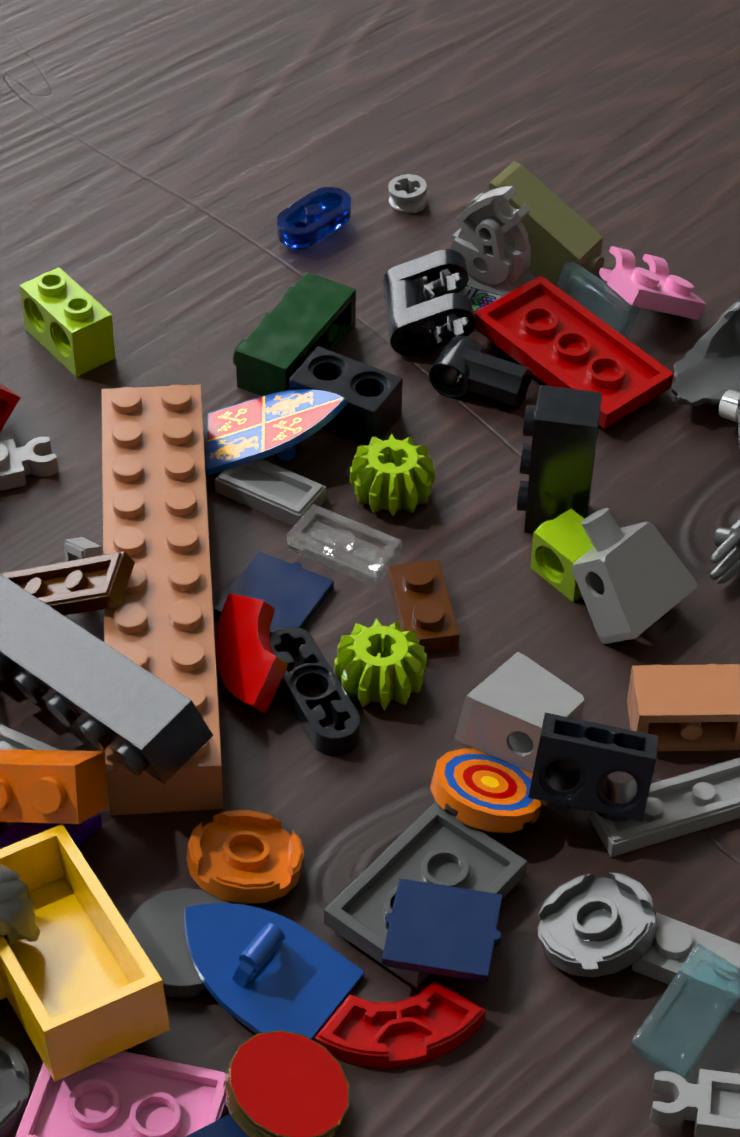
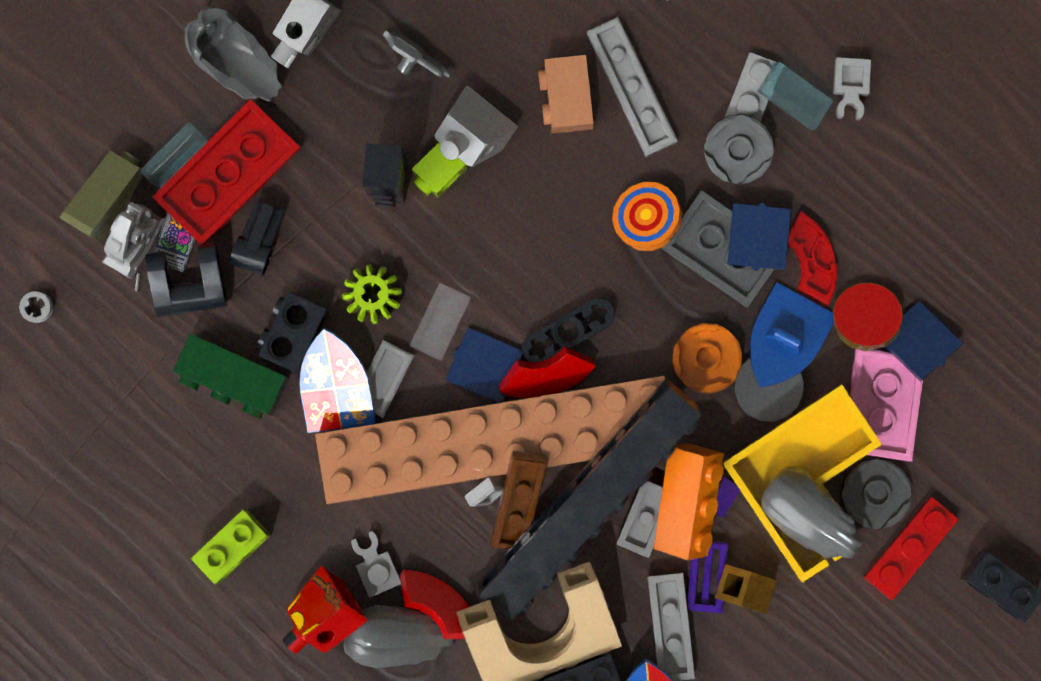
camera: 90 degrees left, 40 degrees up
(313, 217) = (80, 377): clear blue plate -> none
(380, 663) = (550, 277): lime gear -> none
(424, 604) = (486, 266): reddish brown plate -> none
(509, 708) = (591, 193): light grey torso -> none
(596, 753) = (644, 150): black brick -> none
(652, 288) = (164, 111): bright pink plate -> none

